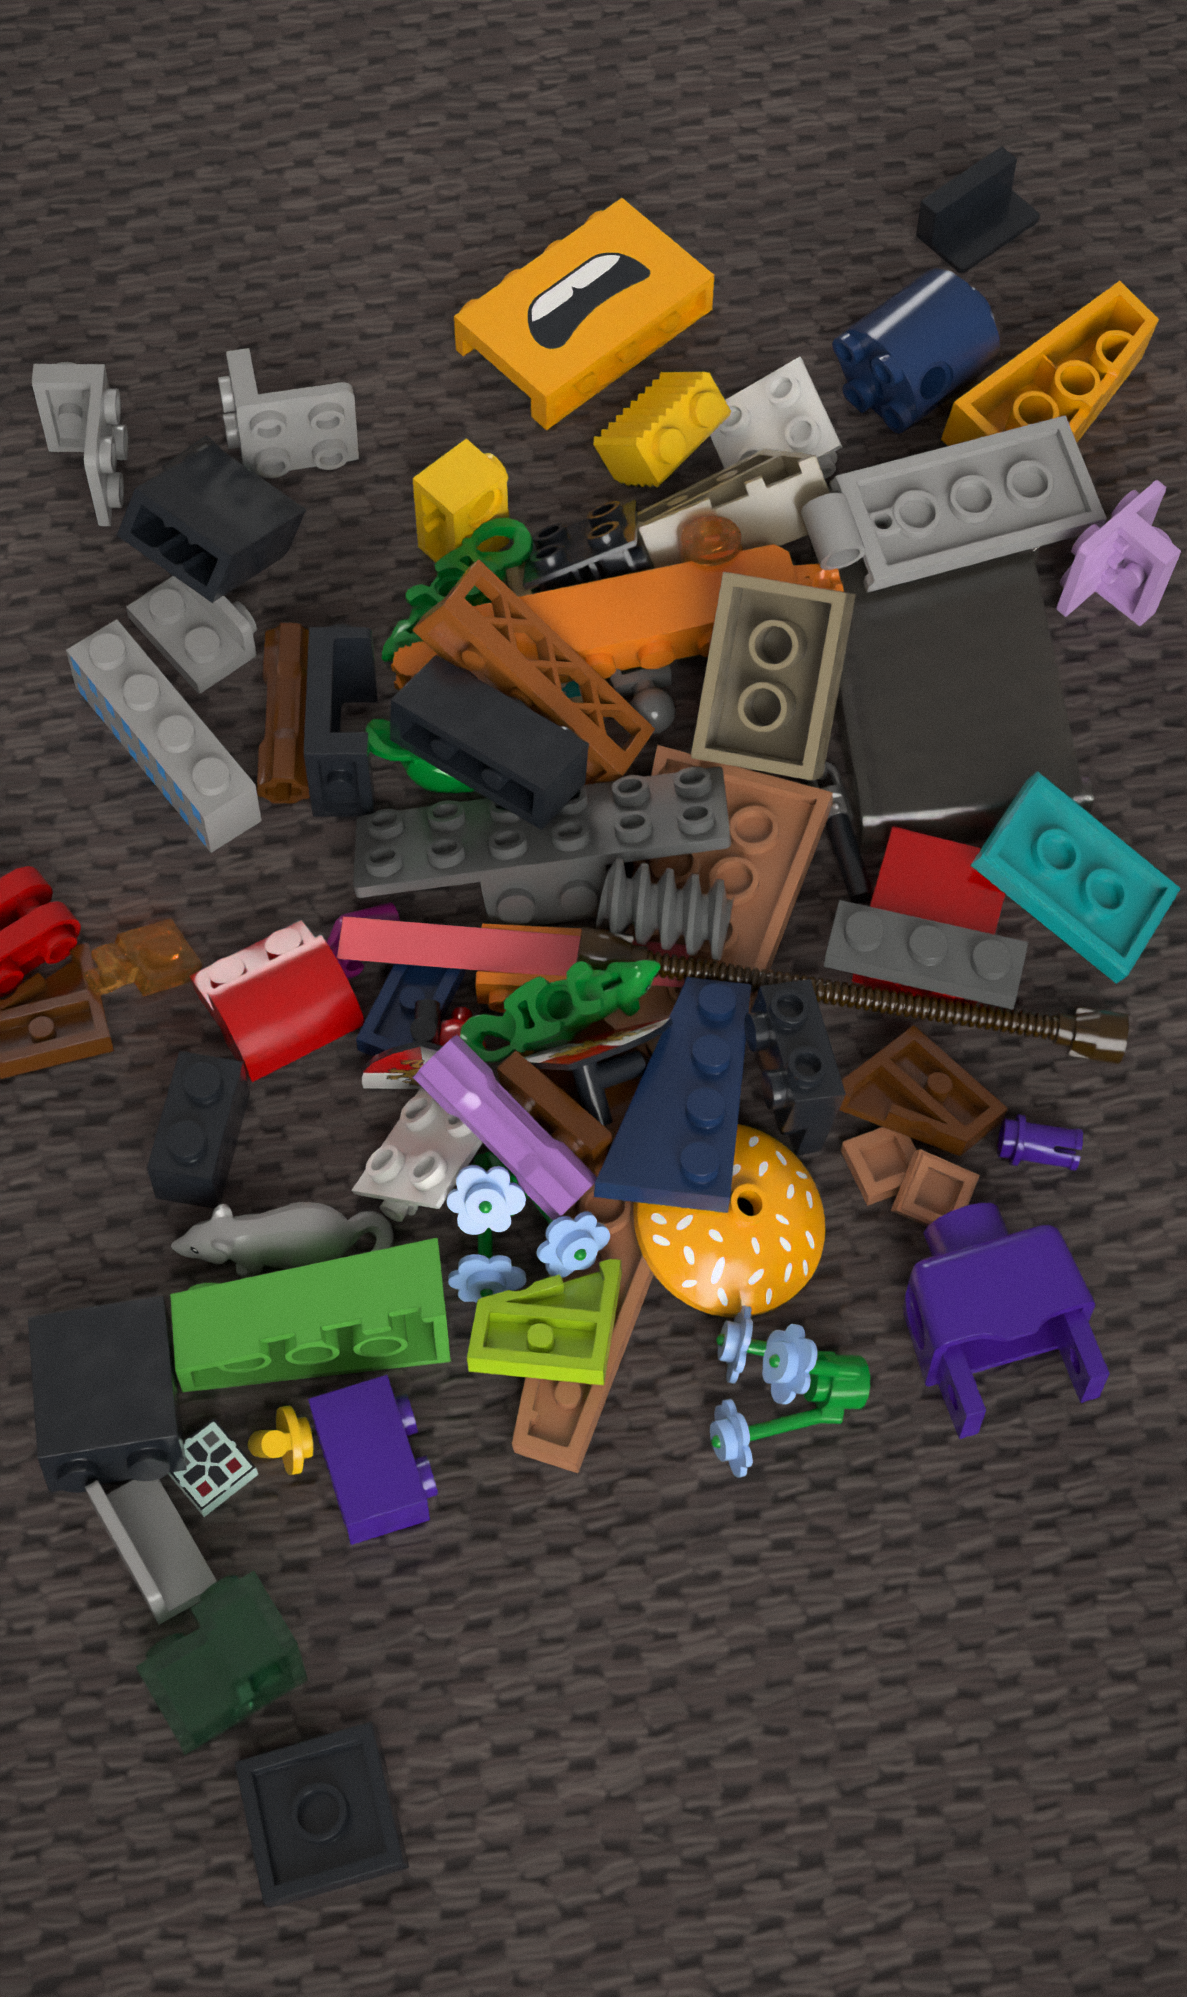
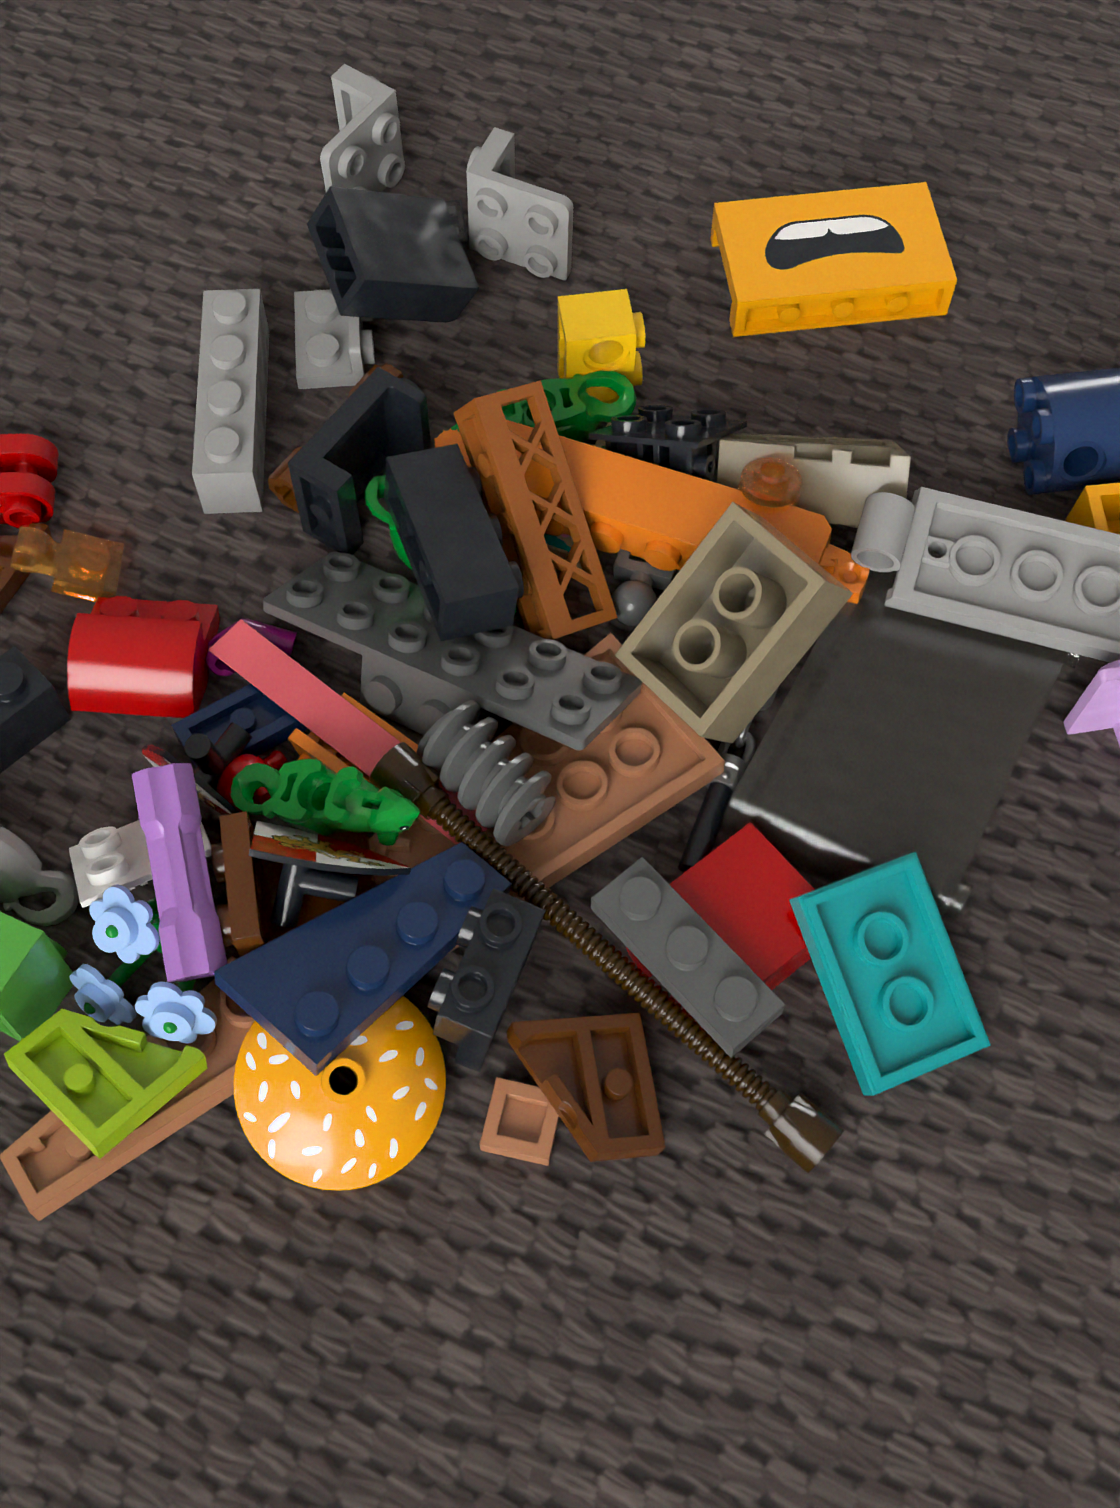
camera: 35 degrees right, 0 degrees up
(662, 428) = (821, 379): yellow brick -> none
(778, 415) = (929, 425): white hinge -> none
(791, 1368) = (307, 1295): plant -> none
(933, 1188) = (539, 1181): nougat tile -> none
(995, 1302) = (495, 1325): dark purple piece -> none
(1037, 1143) = (672, 1199): dark purple pin -> none

